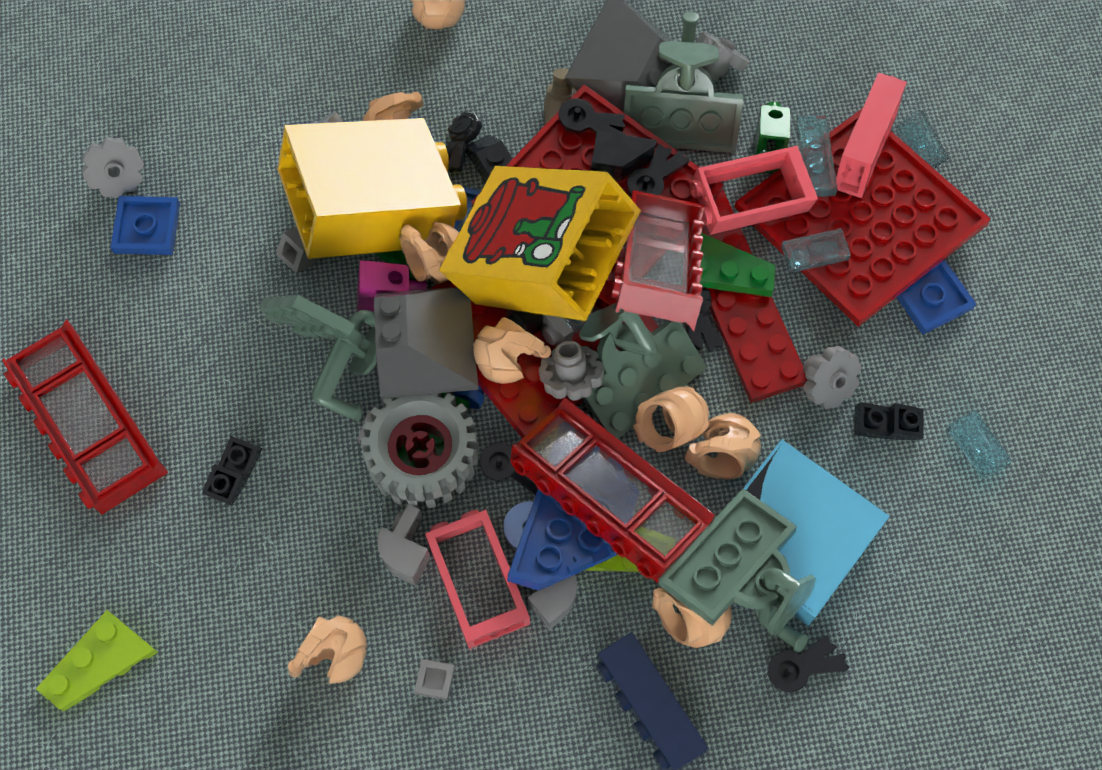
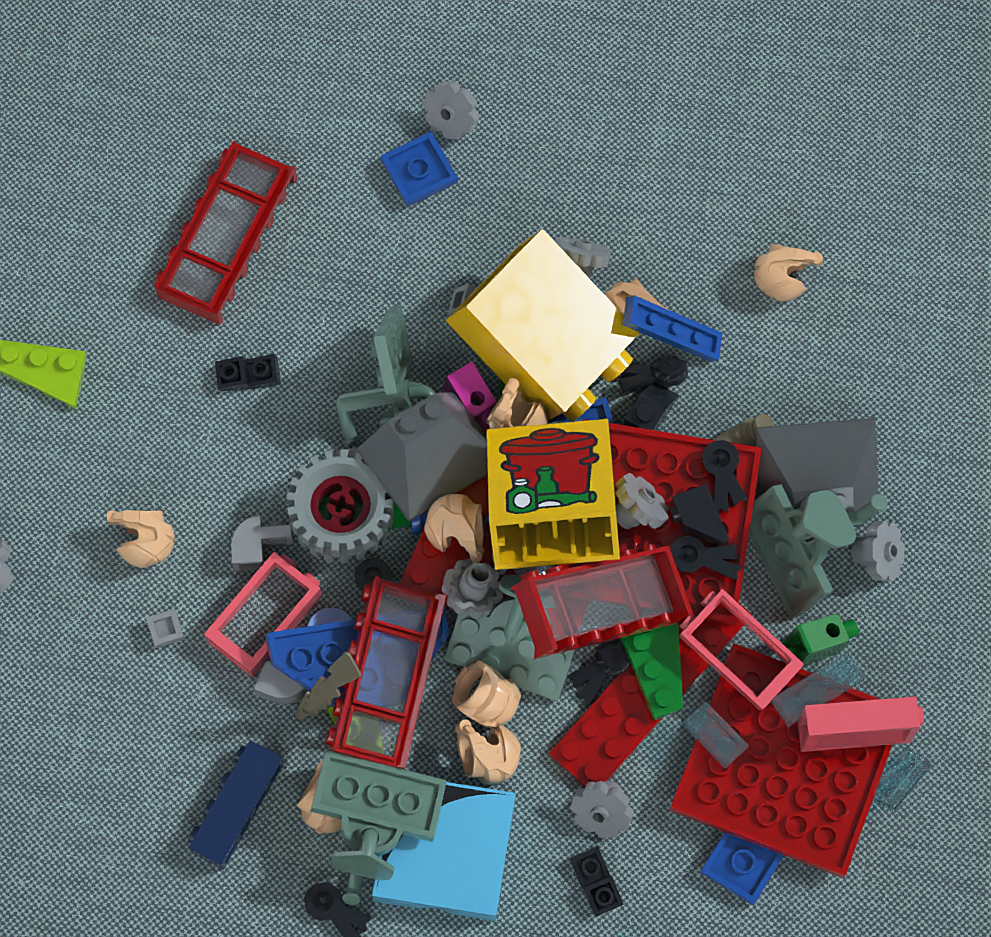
camera: 60 degrees right, 5 degrees up
(433, 97) = (672, 328): none -> blue plate
(599, 551) = (325, 689): none -> dark tan sword

